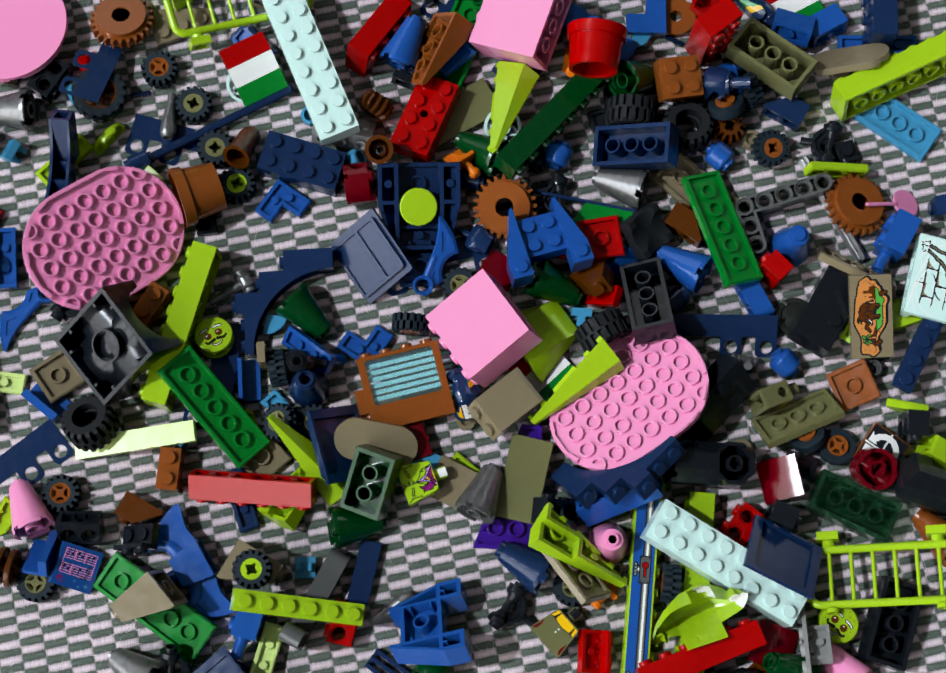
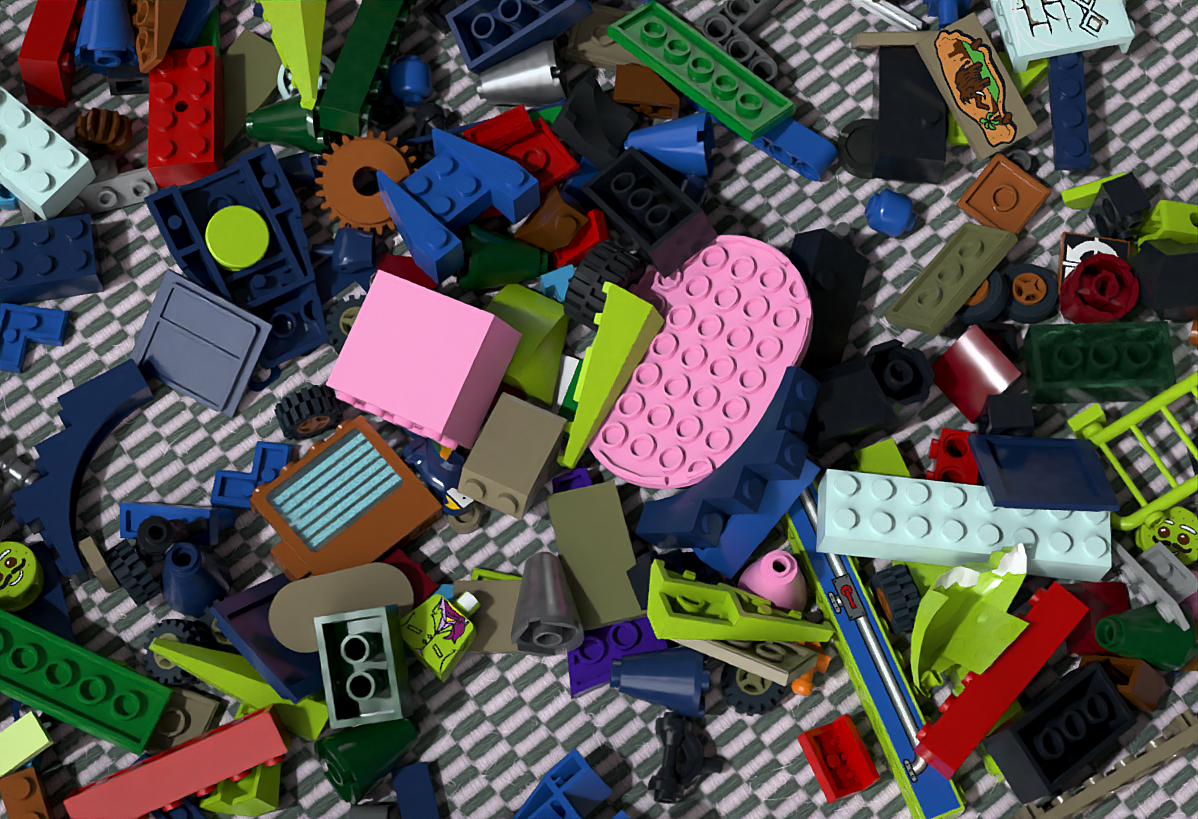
camera: 25 degrees left, 10 degrees down
(249, 380) = (96, 616): blue panel -> none
(272, 398) = (143, 626): dark azure tile -> none
(273, 324) = (95, 515): dark azure tile -> none
(305, 312) = (135, 471): dark green cone -> none
(356, 156) = (109, 219): dark azure tile -> none
(359, 183) = (129, 250): dark red brick -> none
(375, 142) = (136, 168): reddish brown plant -> none
(443, 249) = (306, 282): blue piece -> none
(465, 162) = (279, 145): orange piece -> none
(557, 630) = (764, 756): olive torso -> none
(590, 212) = (501, 129): none -> red tile
(730, 328) = (791, 200): dark blue piece -> none
(772, 397) = (903, 258): olive torso -> none
(774, 268) = (806, 86): red brick -> none
(792, 243) = (810, 50): blue cone -> none

